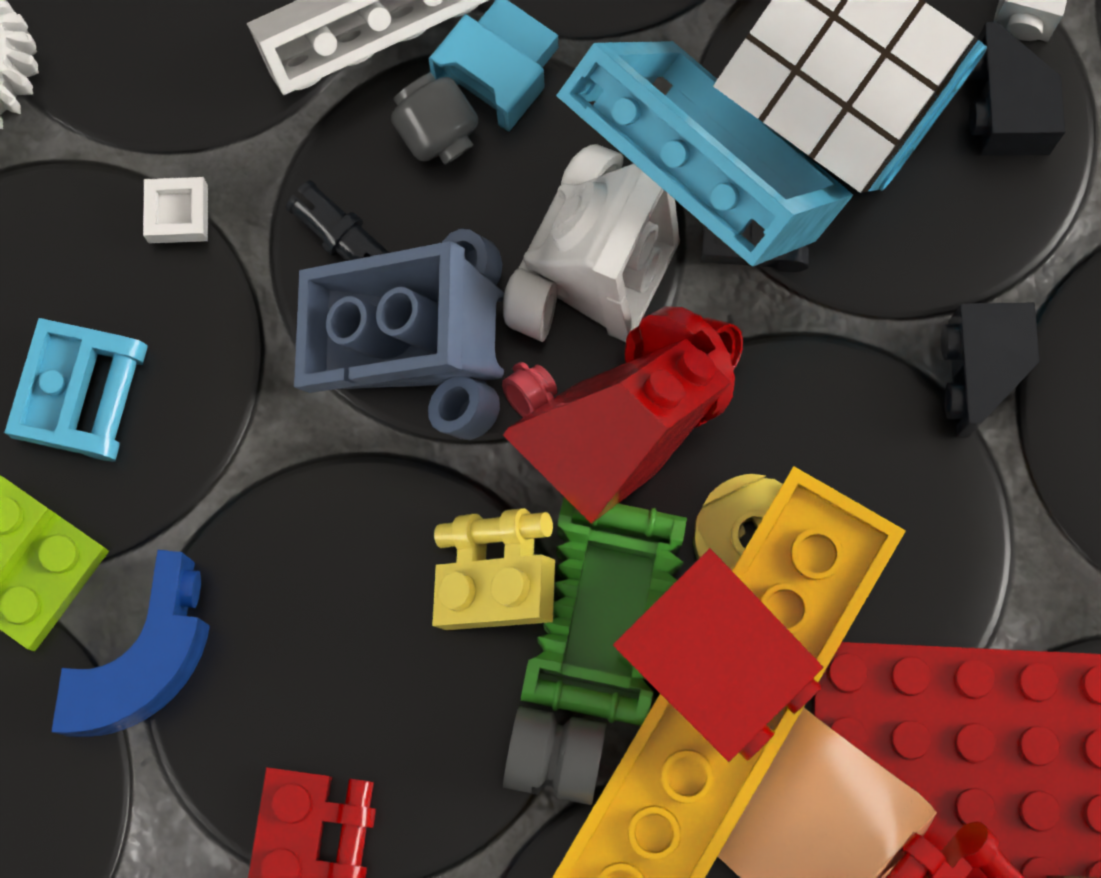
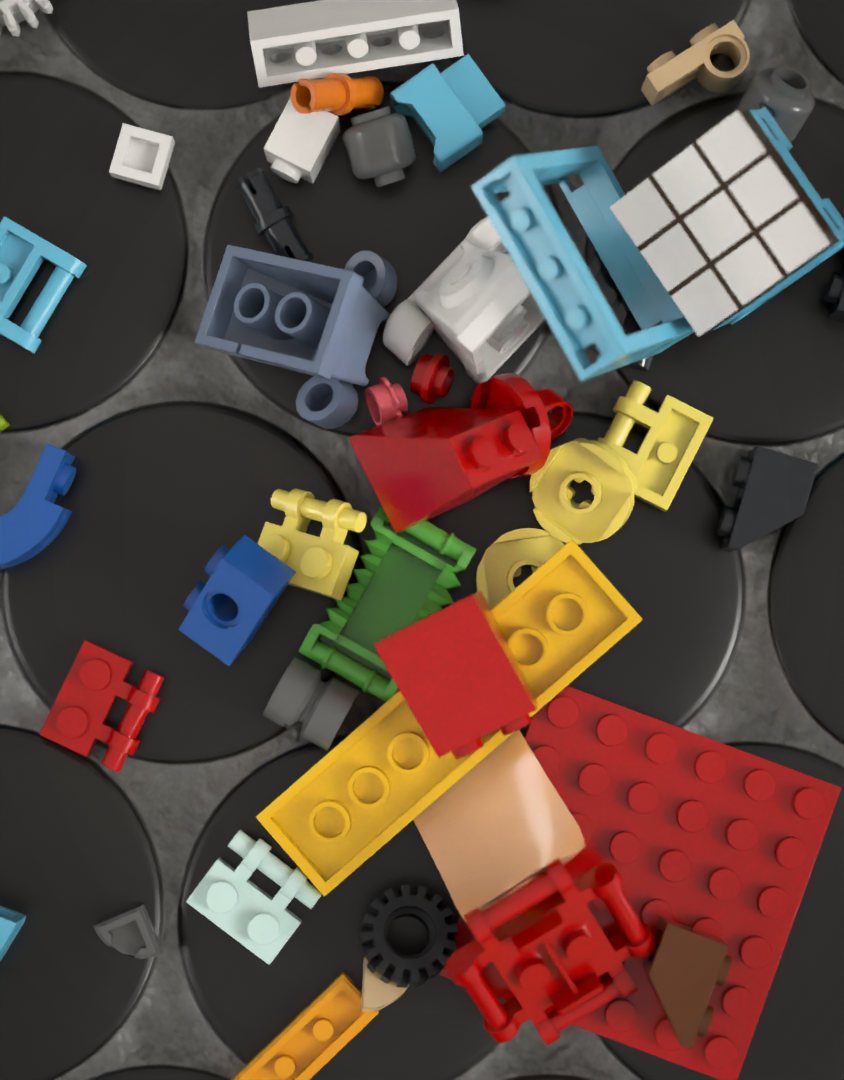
camera: 15 degrees right, 10 degrees up
(347, 139) = (301, 143): none -> white brick
(369, 75) = (336, 94): none -> orange pin
(448, 632) = (235, 598): none -> blue brick
(573, 346) = (432, 377): none -> red plate
(816, 400) = (611, 486): none -> light yellow plate
(858, 349) = (667, 448): none -> light yellow plate

